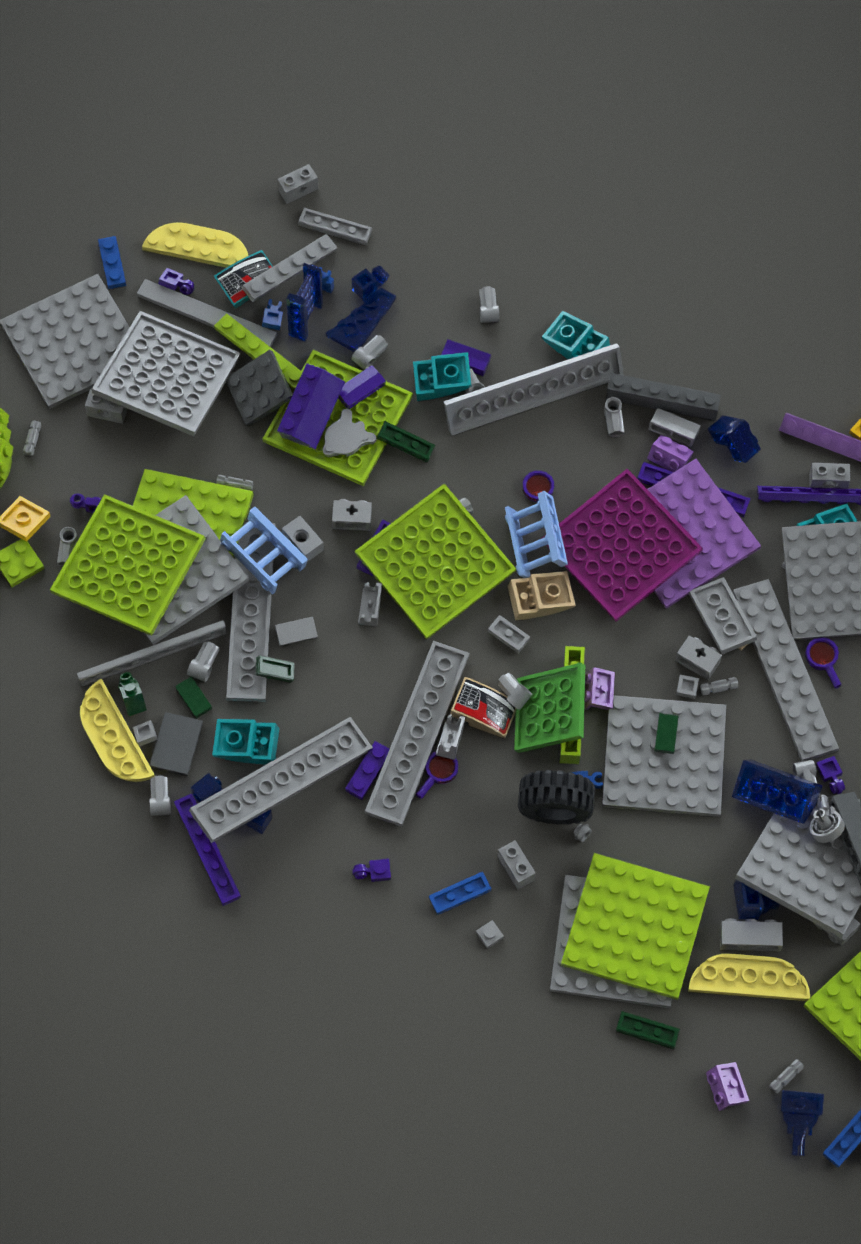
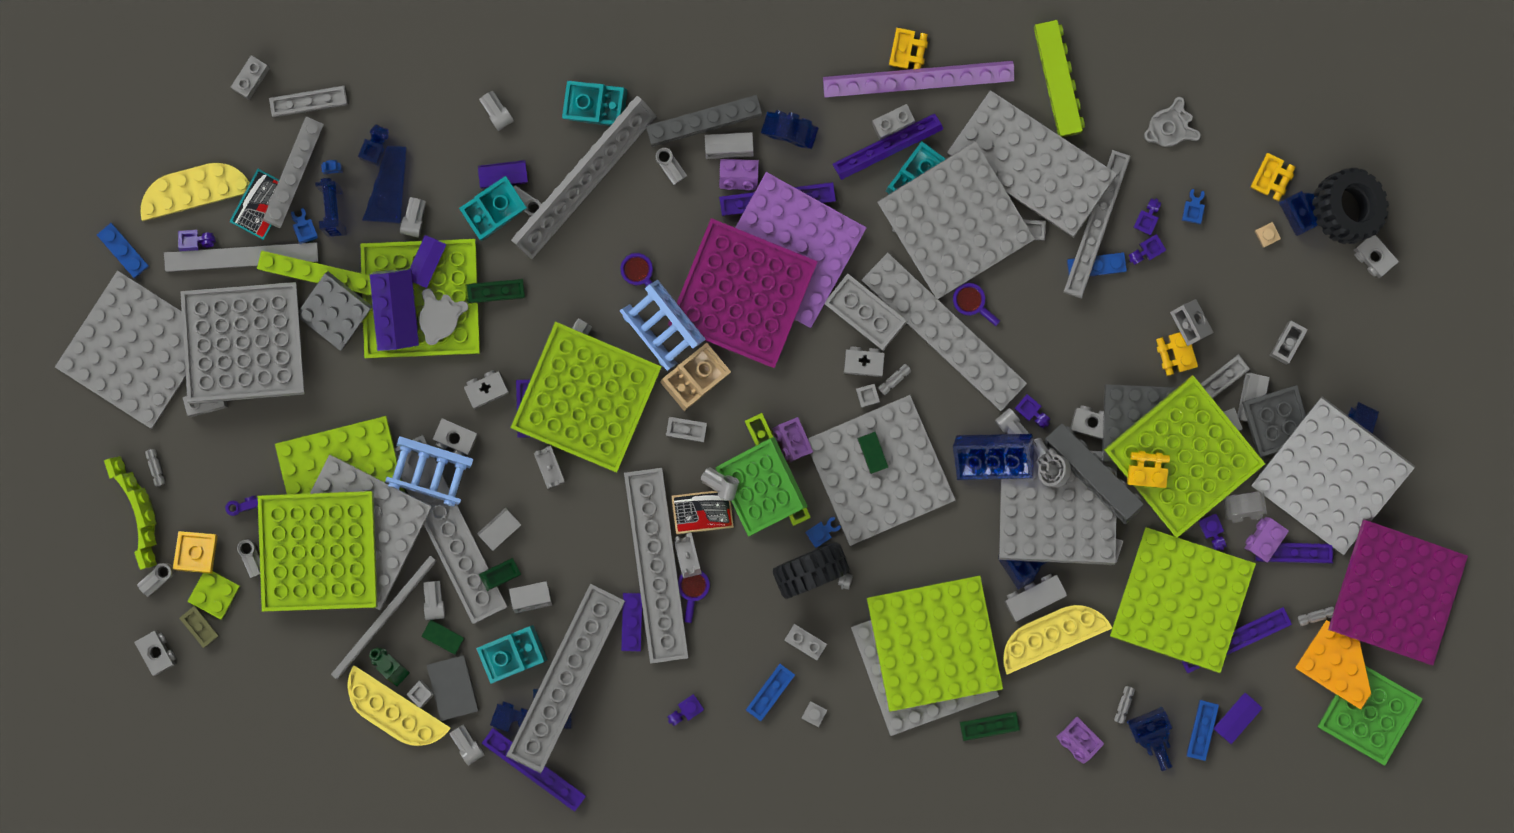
camera: 30 degrees left, 20 degrees up
(235, 482) = (363, 413): light grey axle -> none
(290, 702) = (530, 597): none -> light grey hinge

